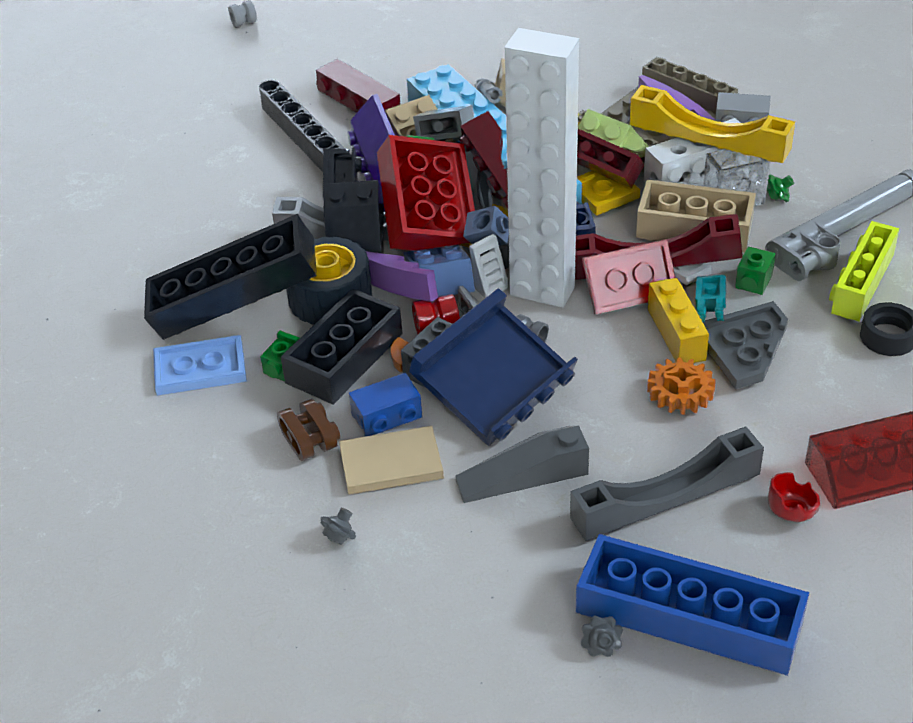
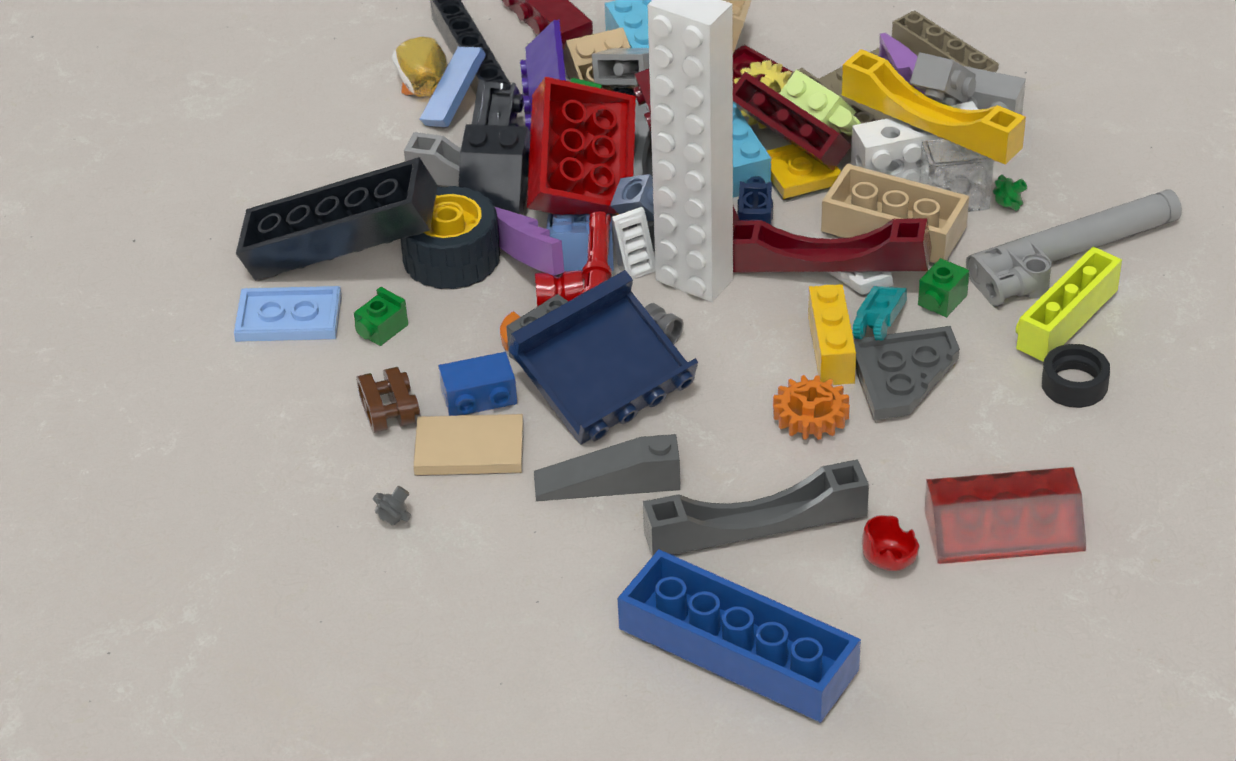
camera: 10 degrees right, 0 degrees up
(267, 145) = (420, 65): none -> clear yellow piece
(297, 158) = (452, 86): none -> tile
(342, 346) = (446, 312): black brick -> none
(467, 292) = (597, 267): none -> red pin
(601, 636) = (636, 654): dark grey plant -> none
(623, 276) = (780, 274): tile -> none
(711, 101) = (943, 79): none -> light grey brick

